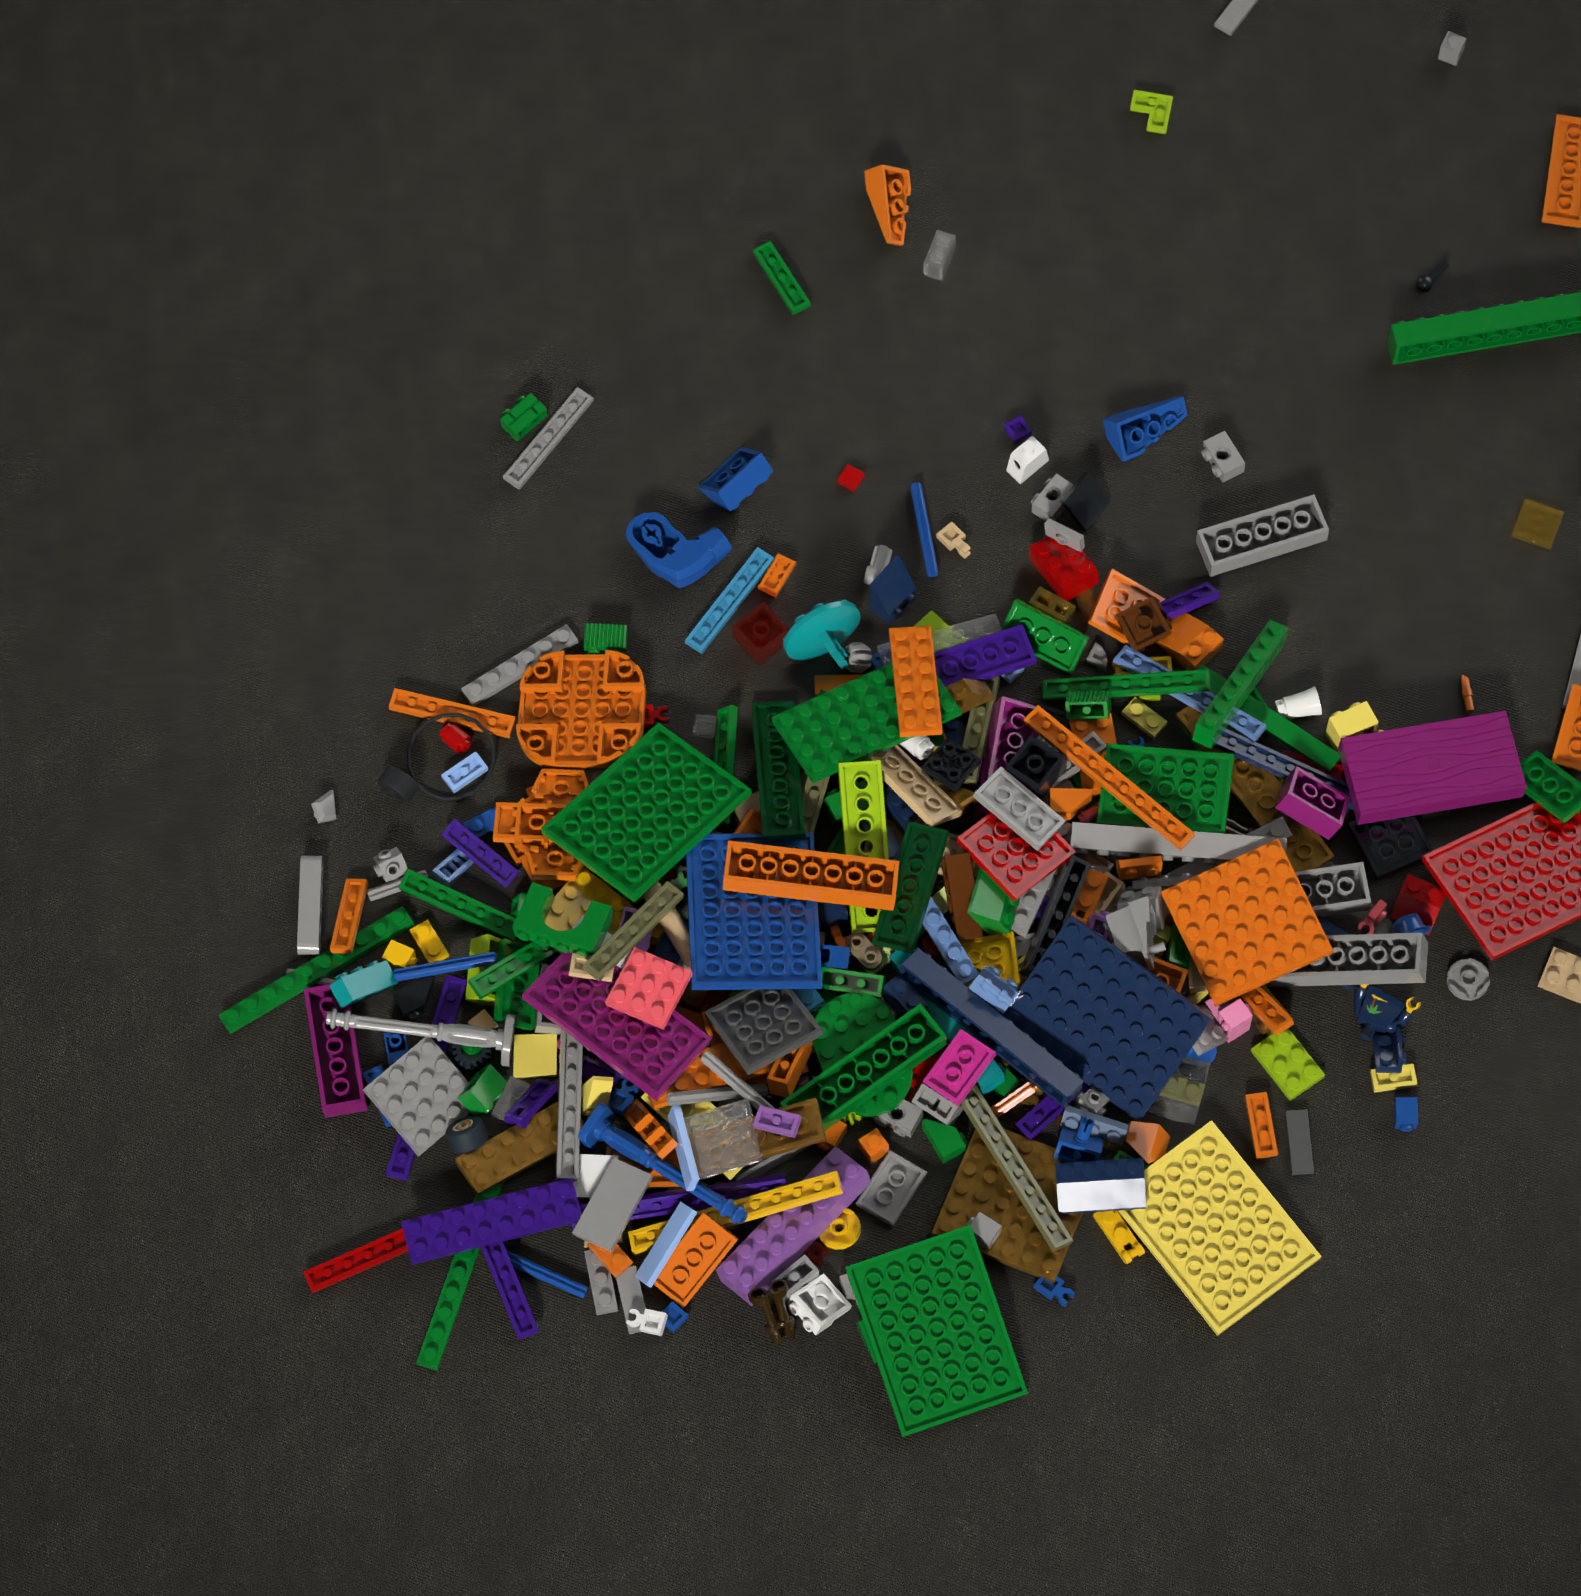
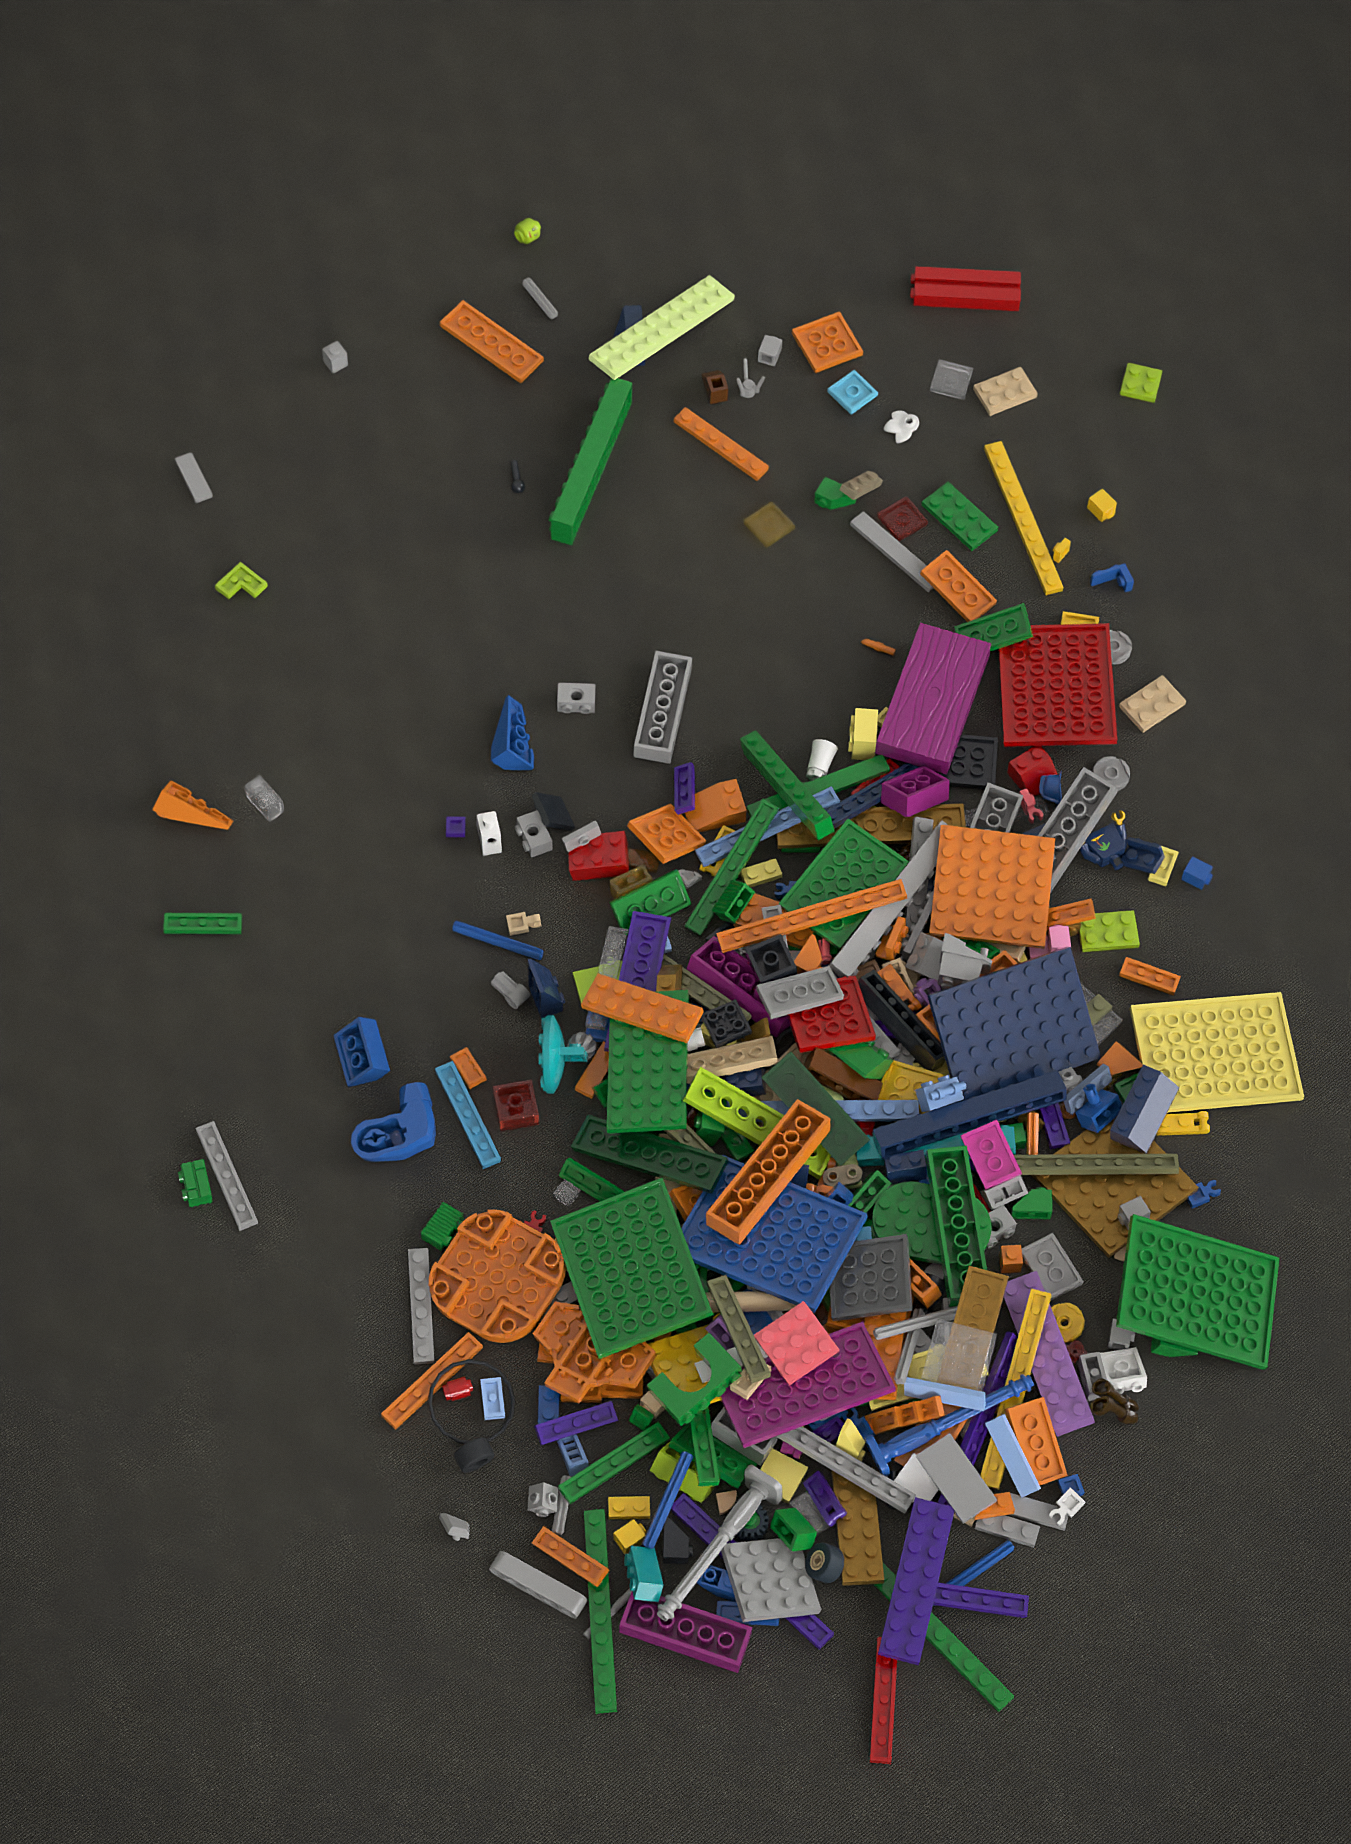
camera: 65 degrees left, 5 degrees down
(777, 1121) = (973, 1304): medium lavender plate -> none
(851, 478) = (416, 968): red tile -> none
(1144, 624) = (690, 825): reddish brown plate -> none
(1299, 1142) = (1177, 958): dark grey tile -> none

